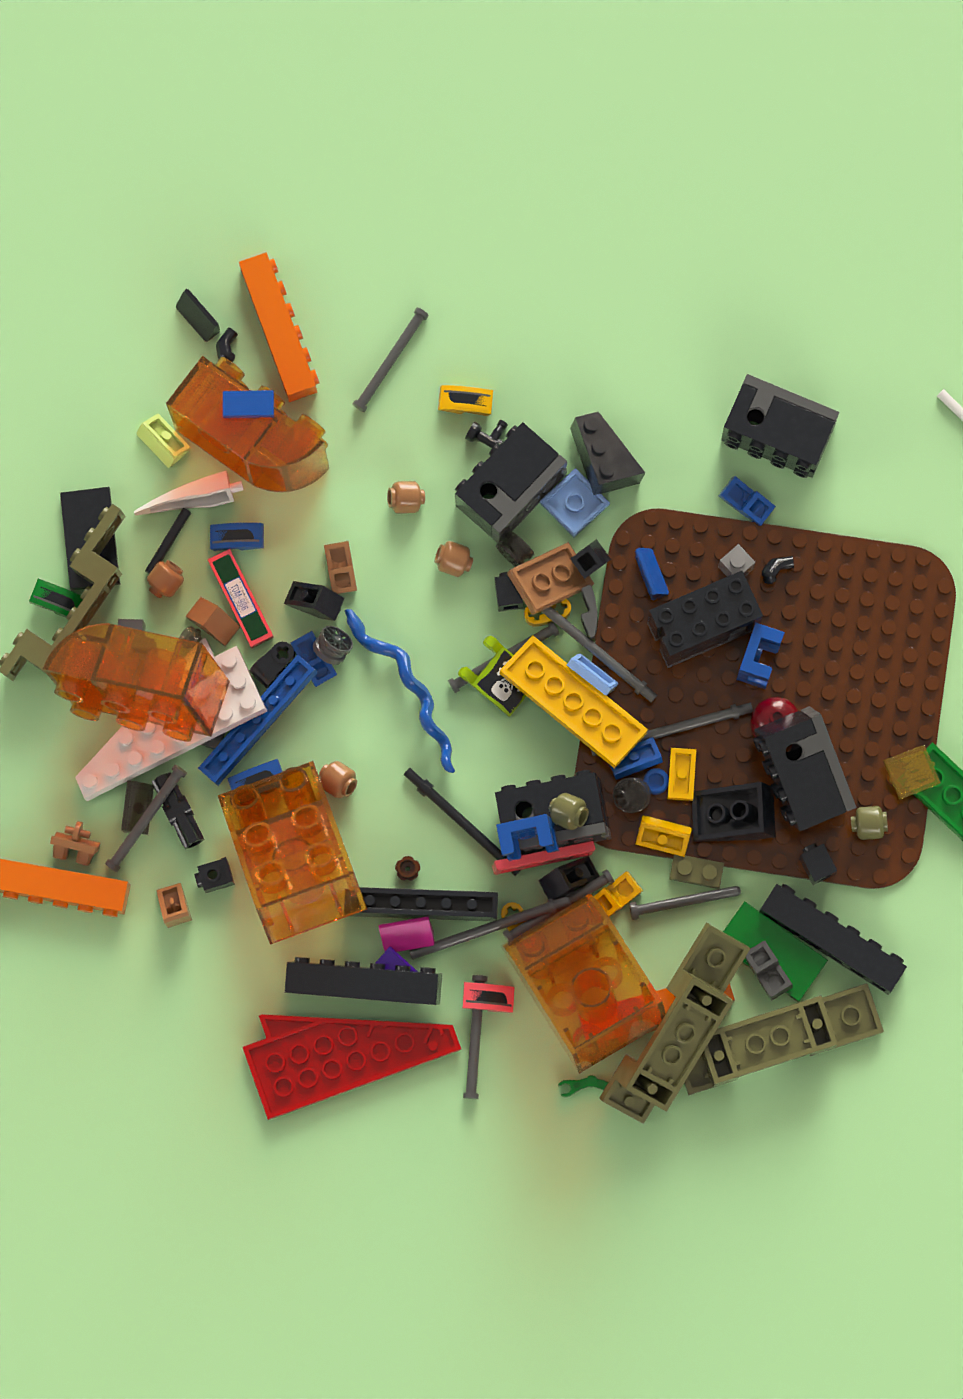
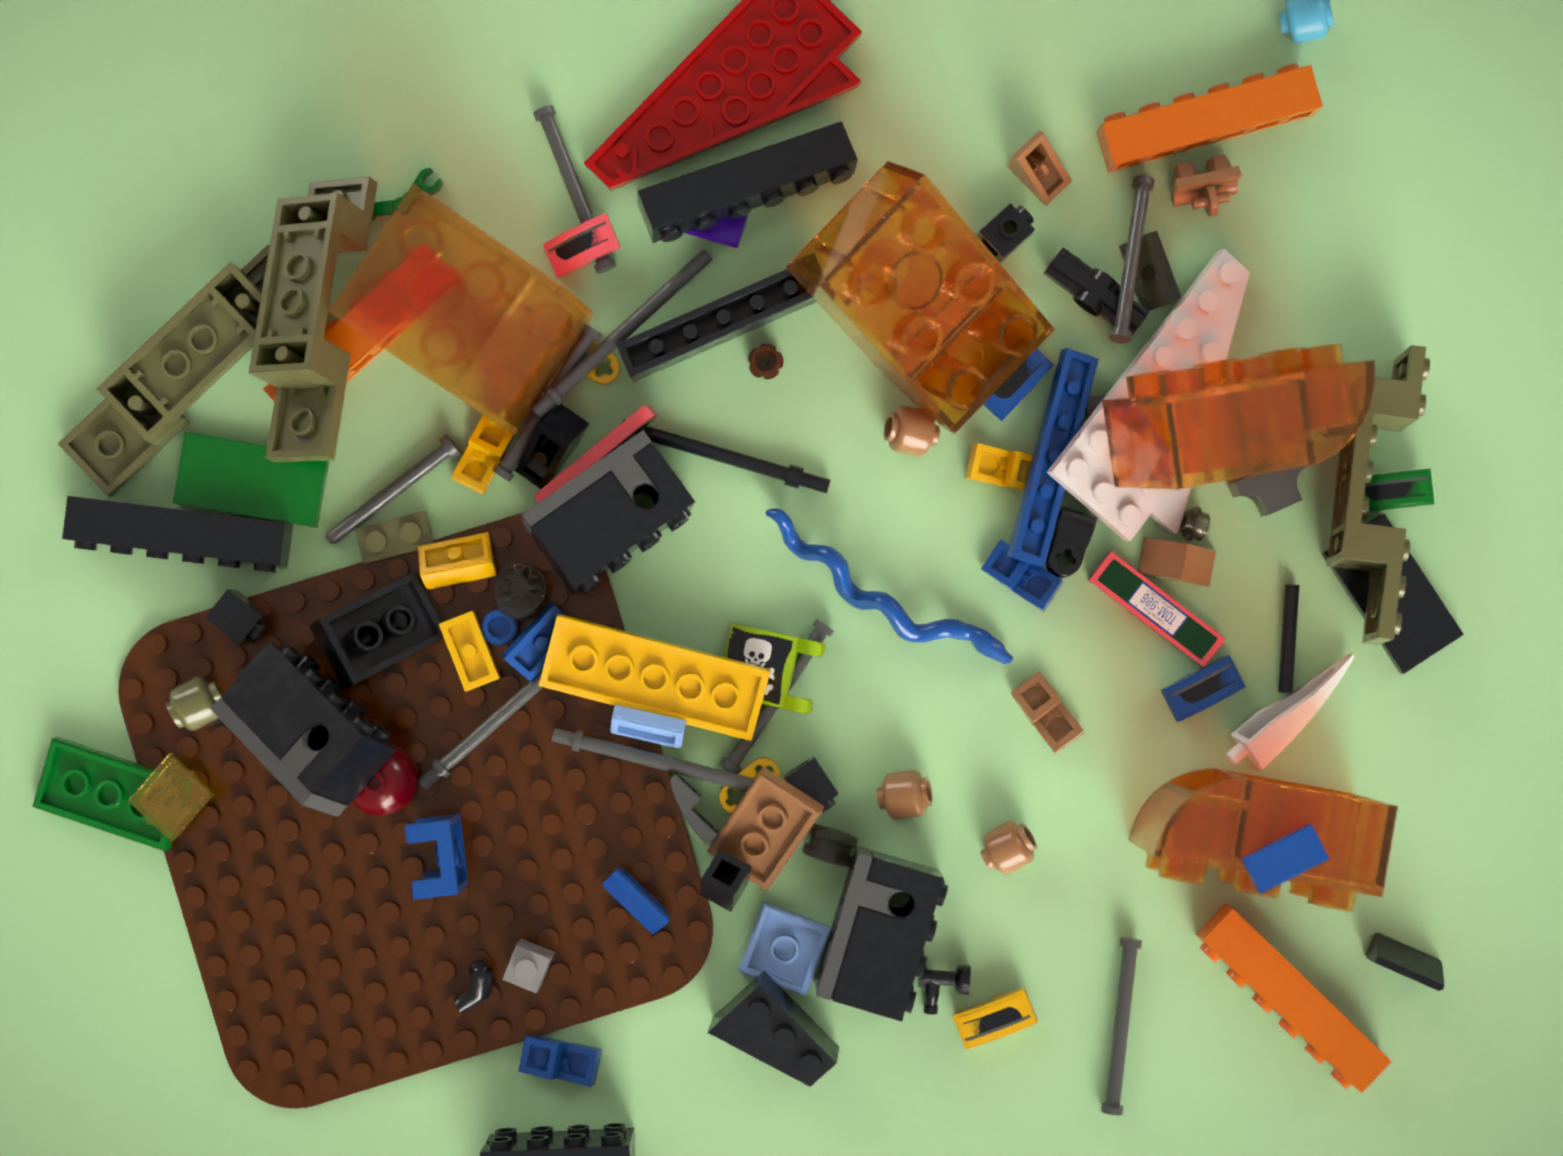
camera: 145 degrees right, 10 degrees up
(162, 440) = (1364, 771): yellowish green slope -> none
(165, 579) = (1267, 585): medium nougat head -> none
(223, 344) = (1350, 936): black arm -> none
(293, 732) = (998, 466): none -> yellow slope
(314, 600) = (1059, 651): black slope -> none
(332, 647) = (1005, 598): dark grey wheel -> none
(407, 934) = (722, 273): dark pink slope -> none
(526, 829) = (643, 447): blue panel -> none
(568, 811) = (581, 515): olive head -> none
(704, 619) = (530, 870): black piece -> none
(768, 971) = (239, 450): dark grey slope -> none

